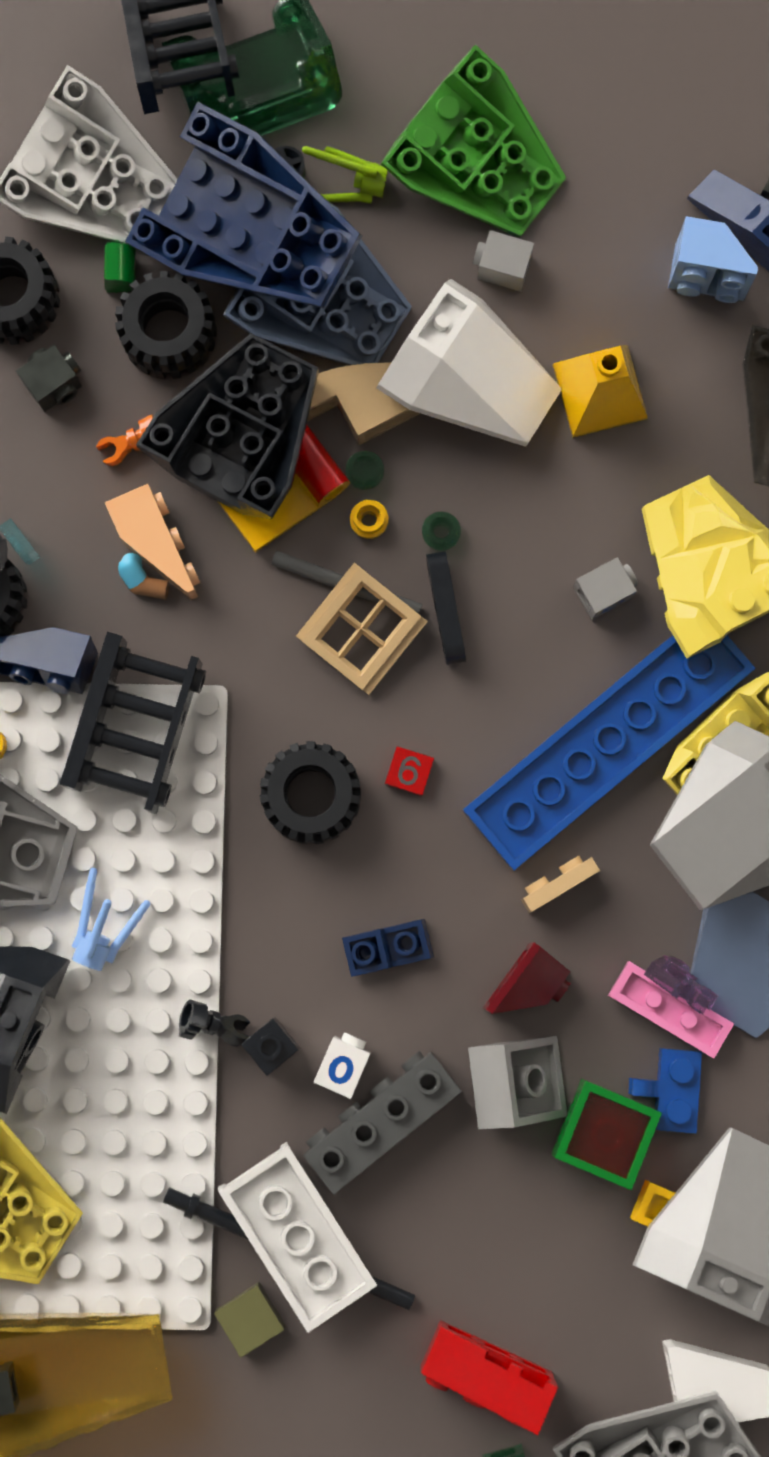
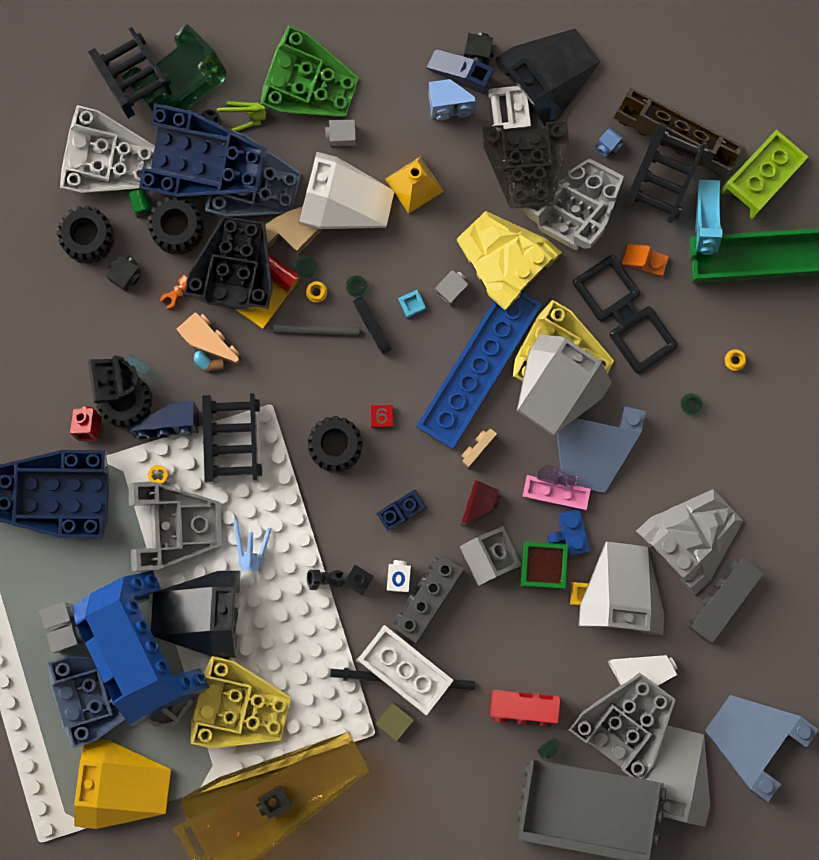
camera: 25 degrees left, 0 degrees up
(335, 606) = (314, 343): tan piece -> none
(527, 594) = (412, 304): none -> medium azure tile

